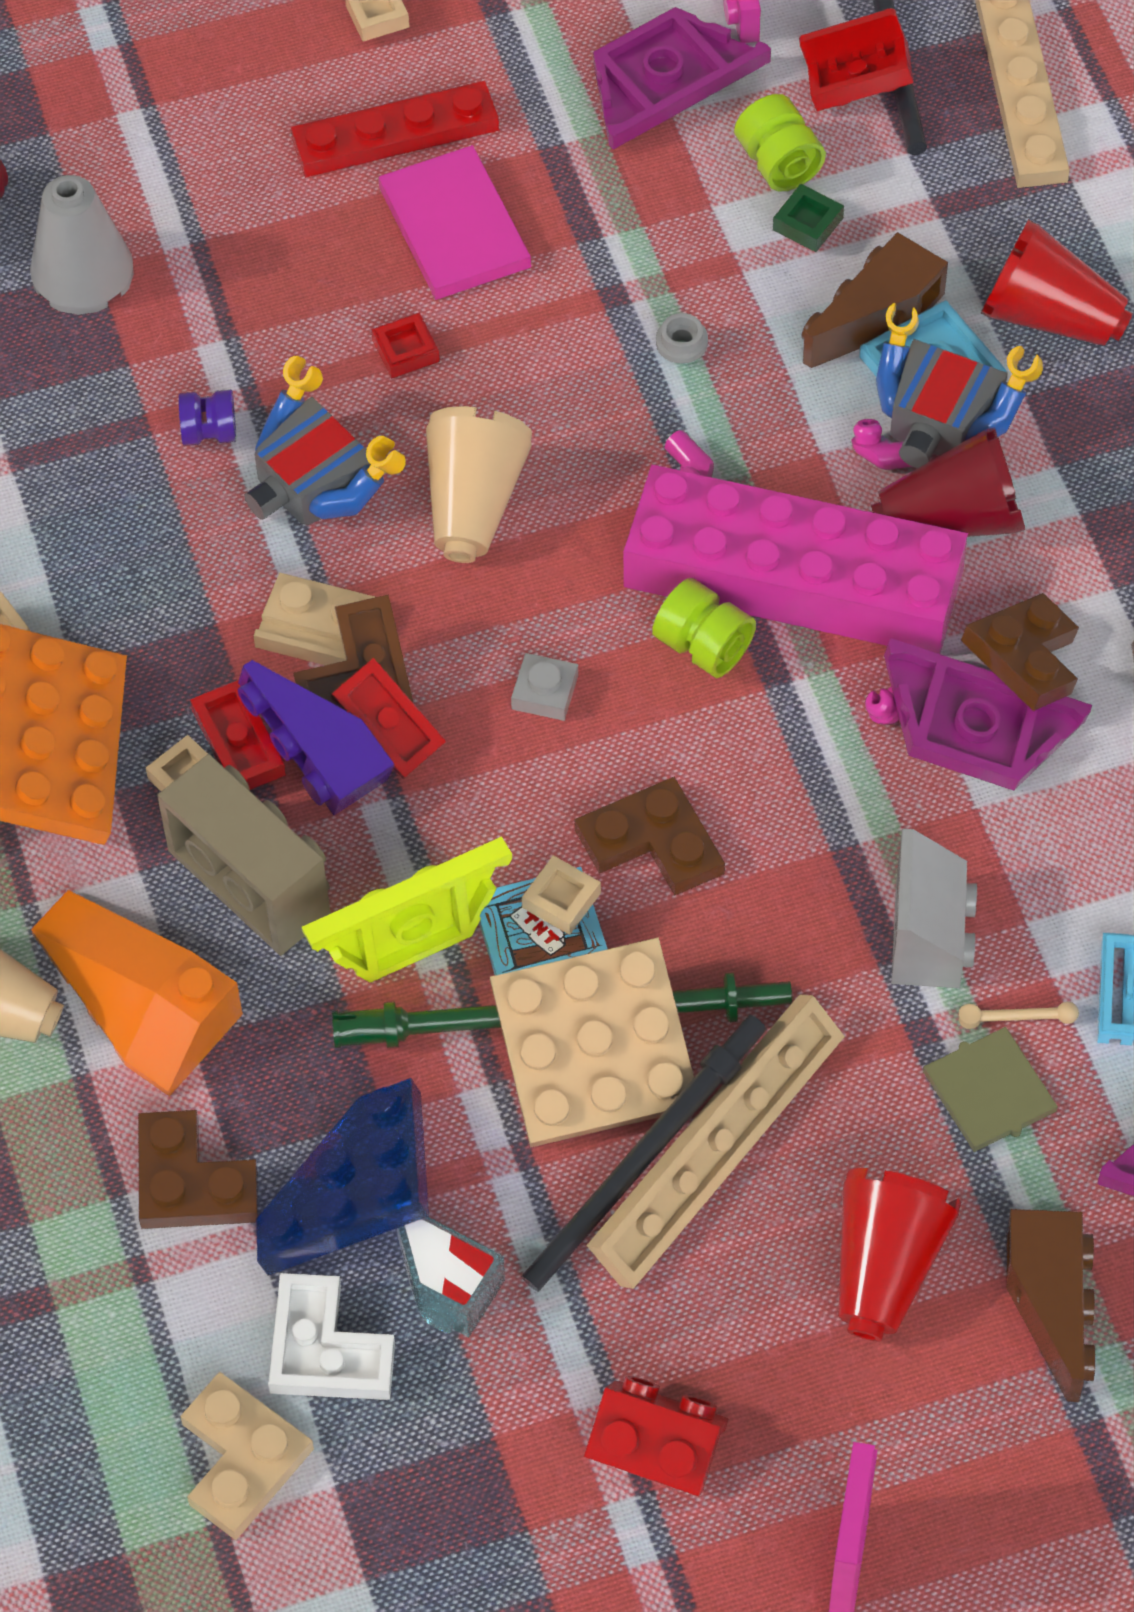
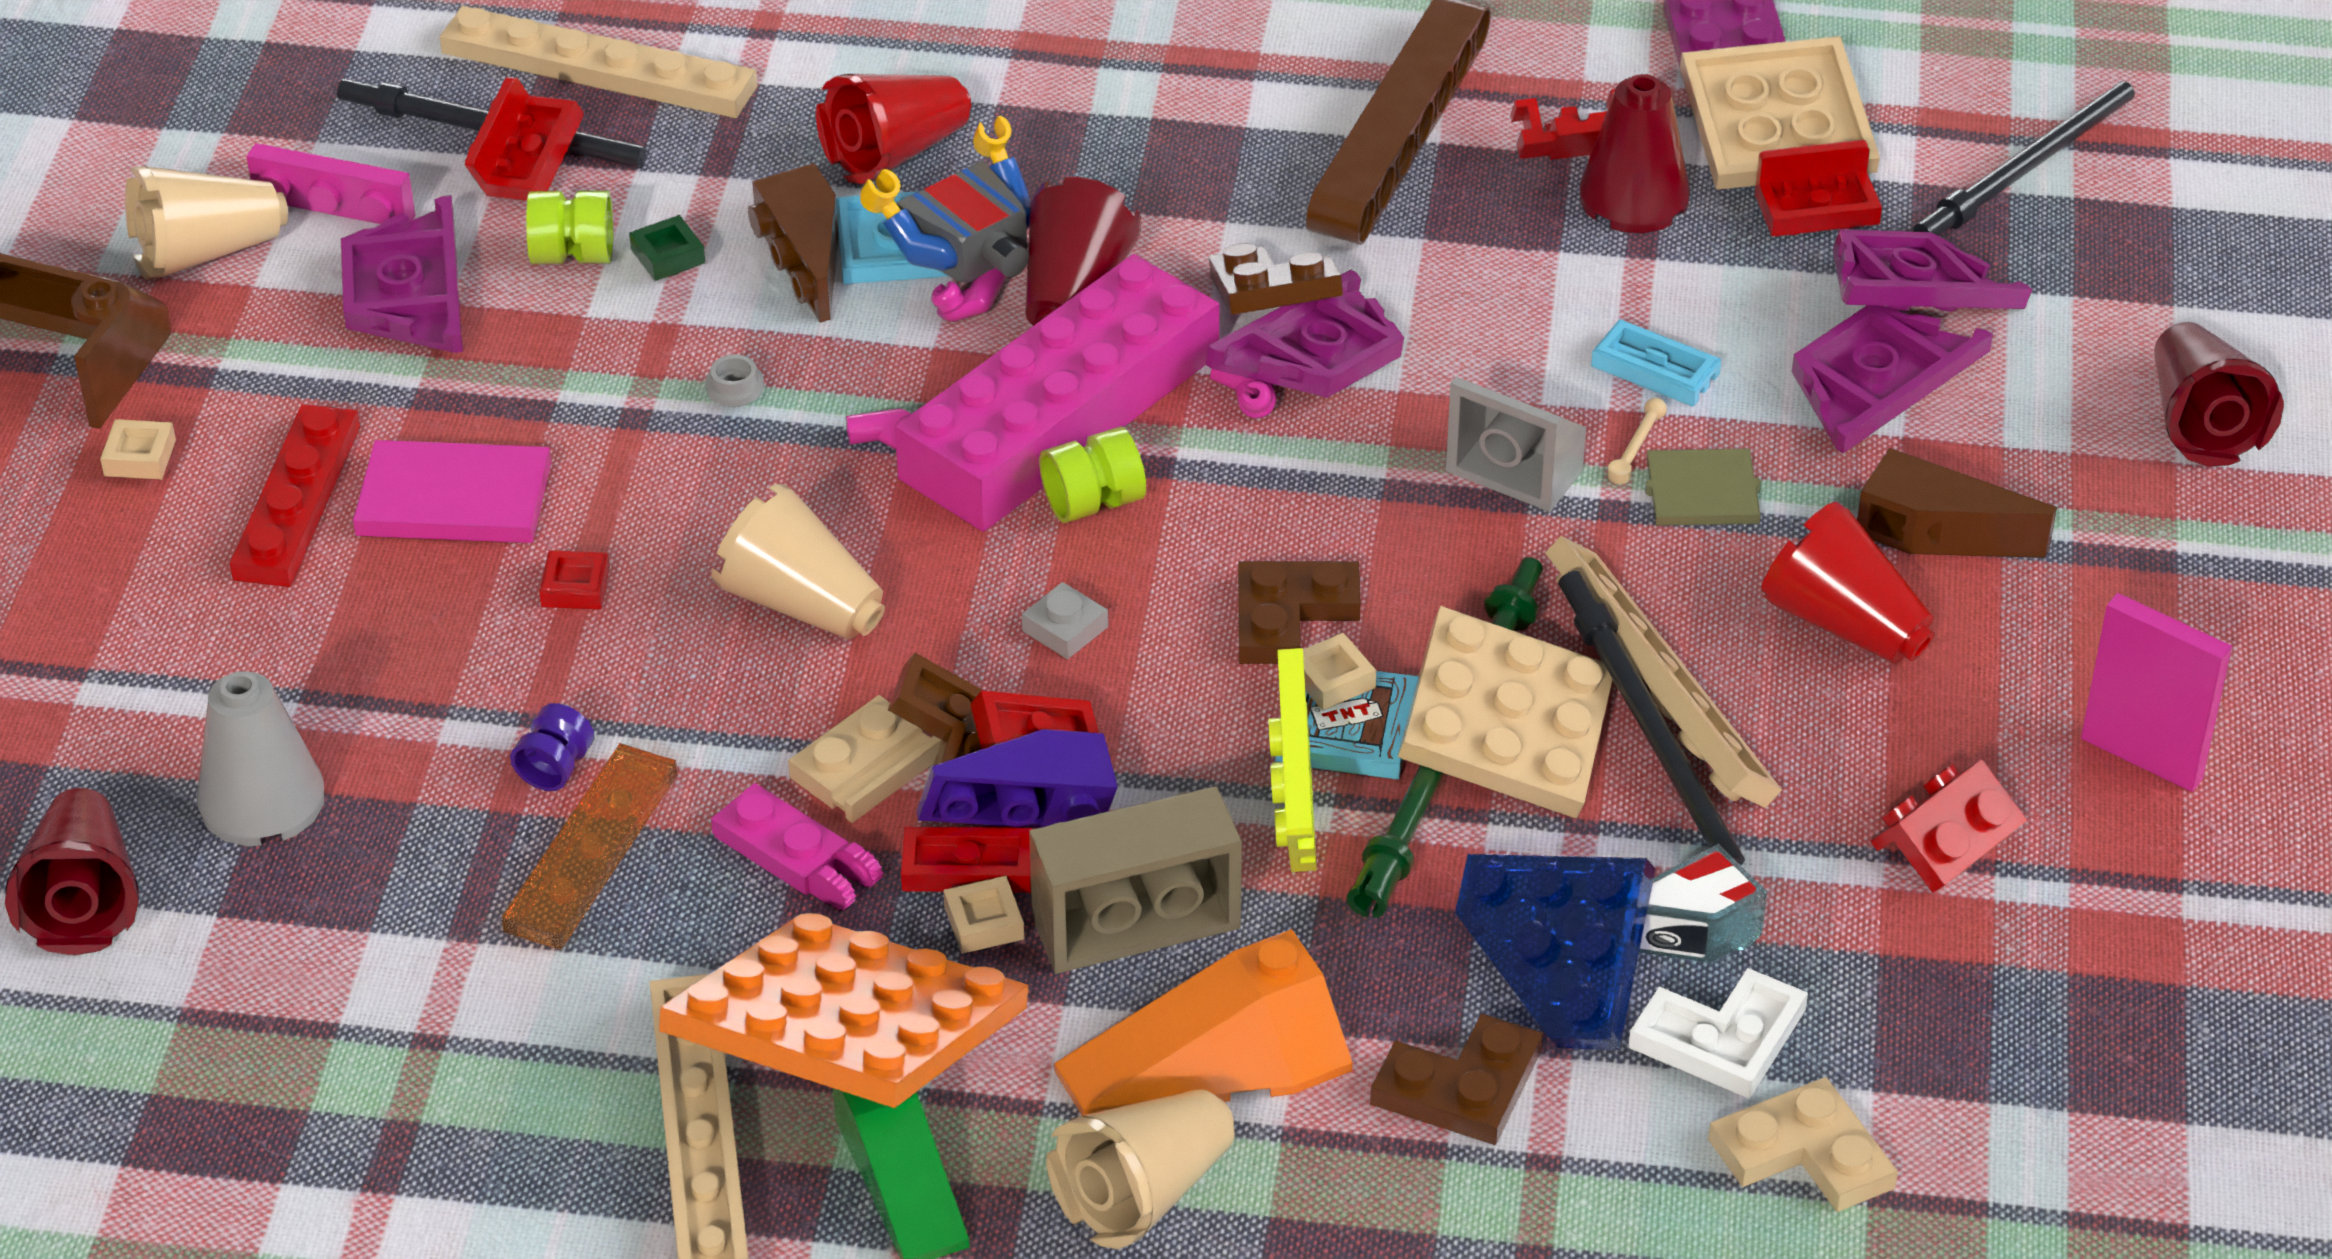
camera: 65 degrees left, 15 degrees down
(133, 491) = (589, 846): none -> clear orange tile
(200, 618) = (794, 847): none -> dark pink hinge
(312, 460) = (676, 683): torso -> none

